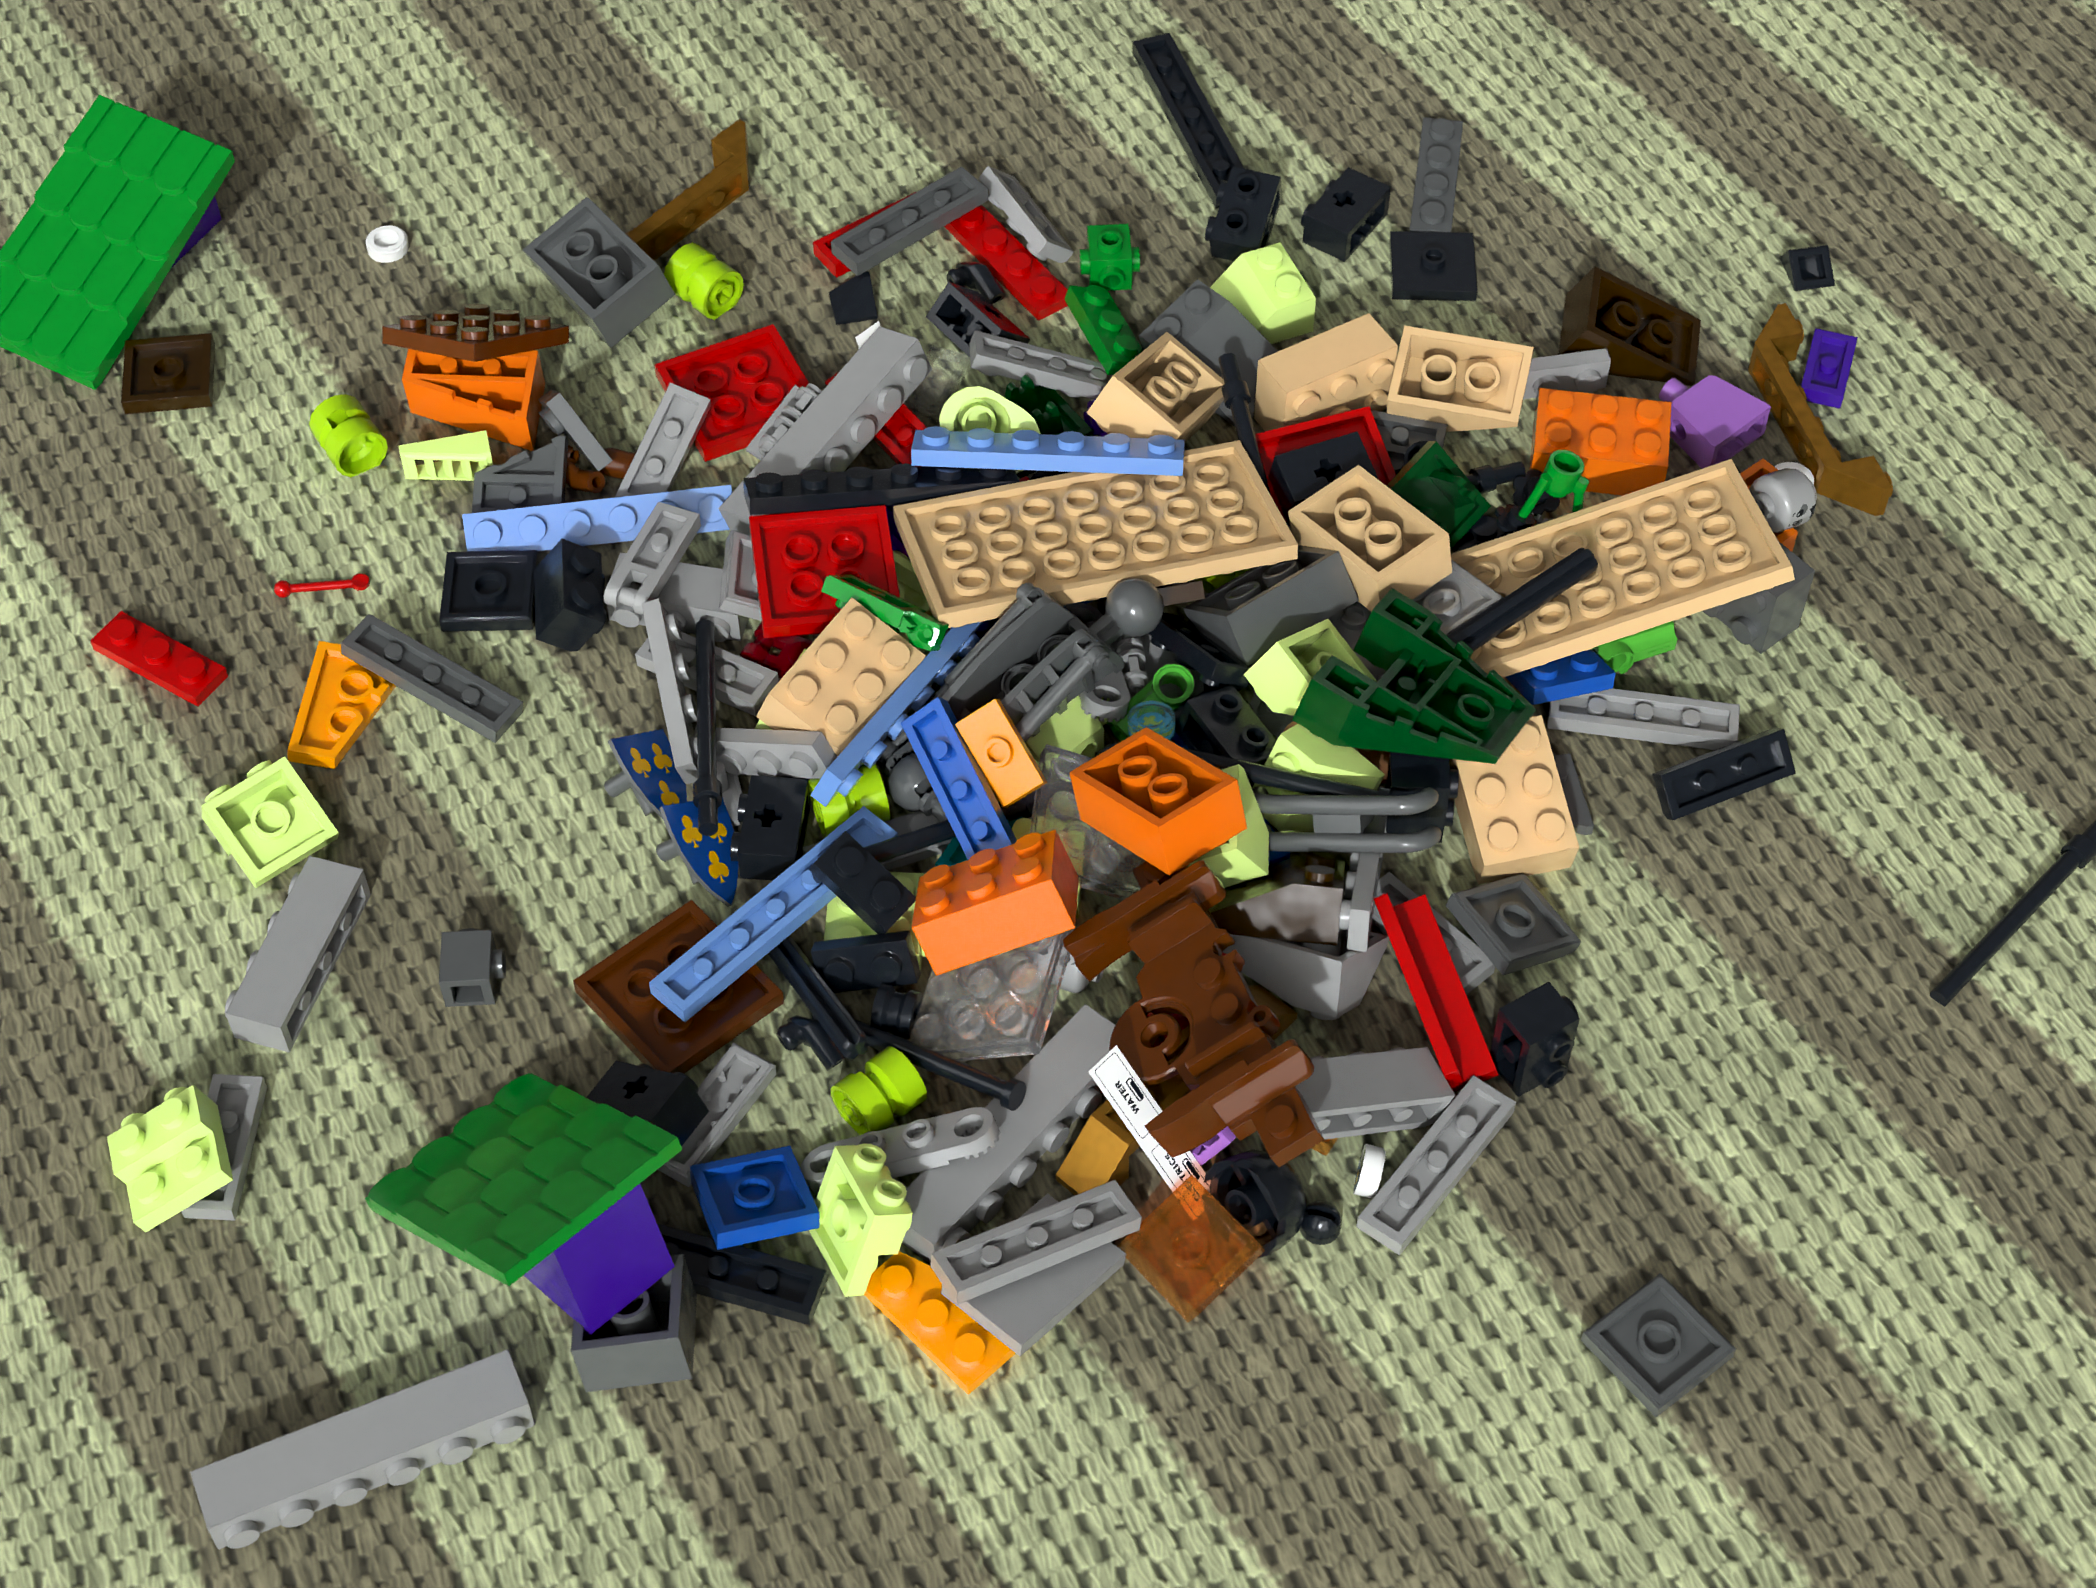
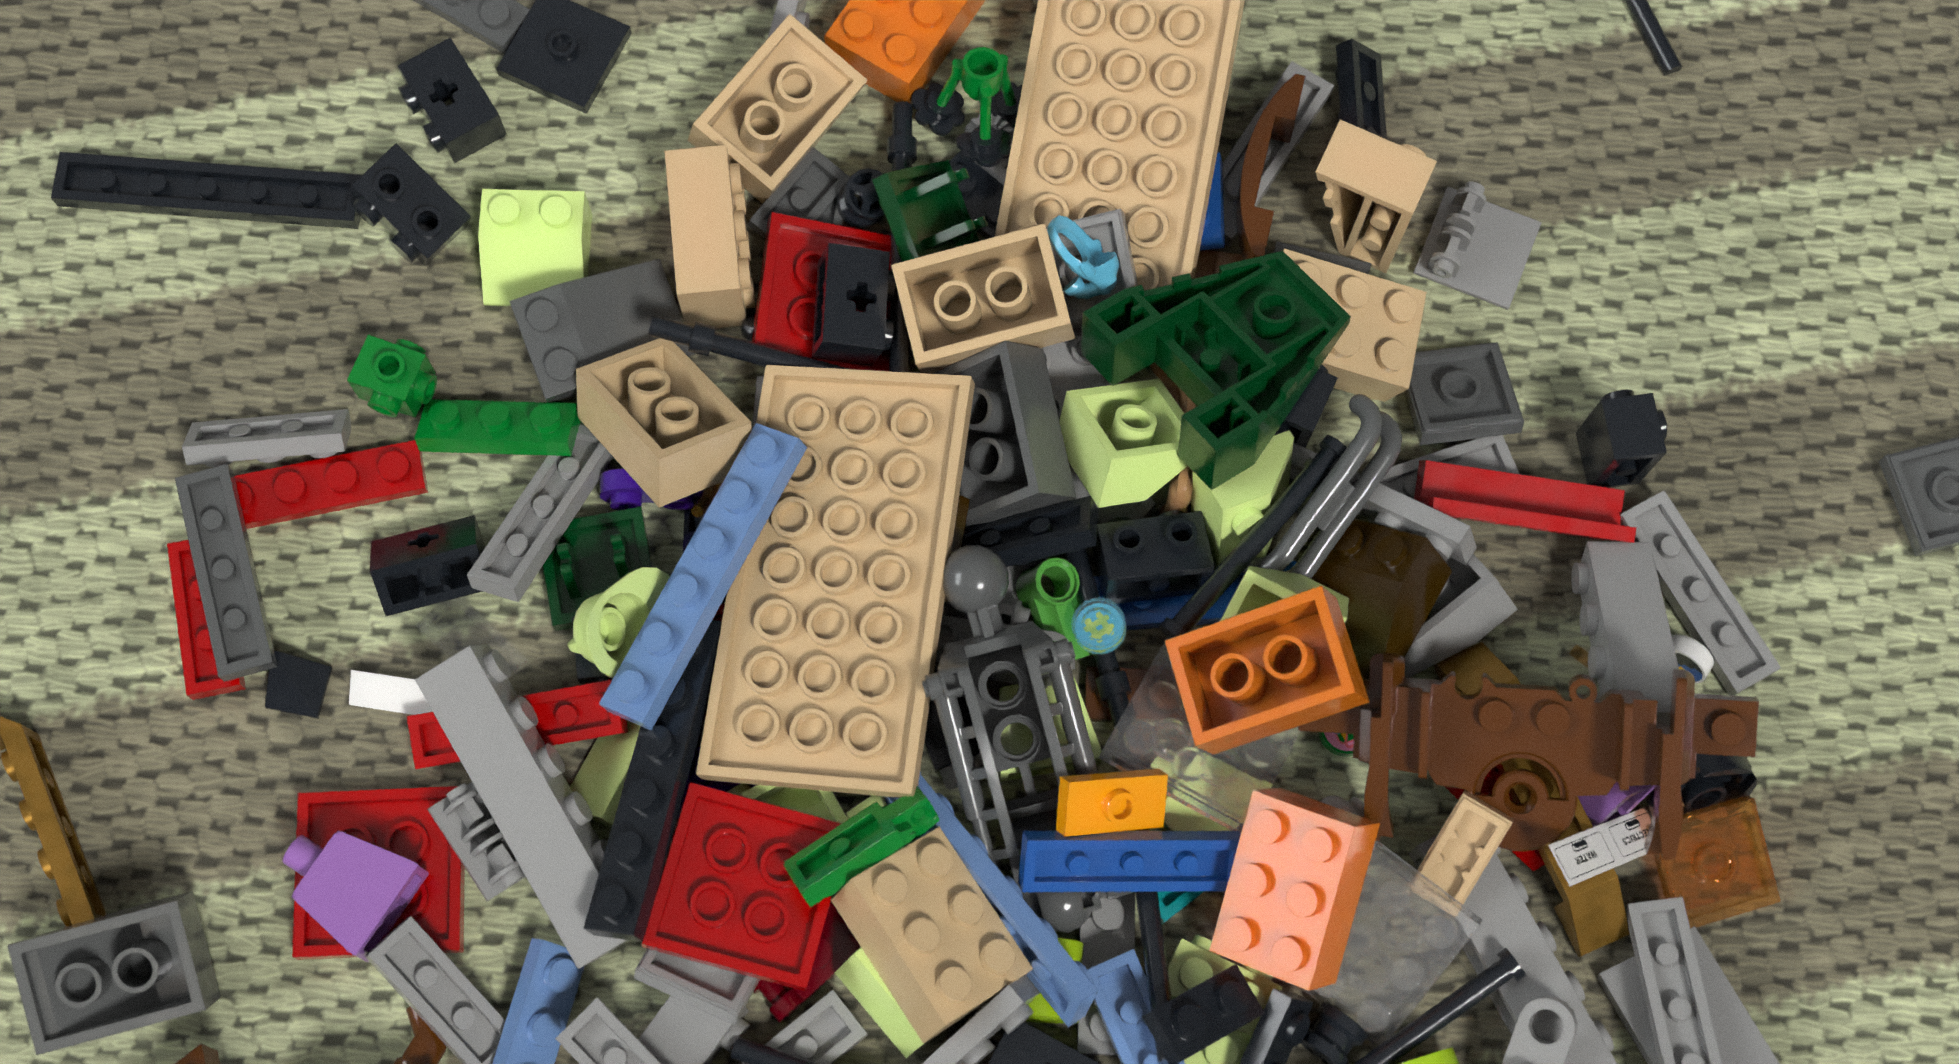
camera: 70 degrees left, 20 degrees up
(703, 280) = (174, 853): lime wheel -> none
(717, 365) = (353, 888): none -> medium lavender torso
(979, 277) = (334, 530): black arm -> none
(1093, 1018) = (1465, 846): none -> tan plate
(1438, 599) = (1096, 265): none -> medium azure piece
(1526, 599) = (1134, 194): black axle -> none
(1637, 769) = (1371, 191): none -> tan wedge
(1662, 899) = (1477, 246): none -> light grey hinge
(1673, 697) = (1276, 124): none -> reddish brown slope

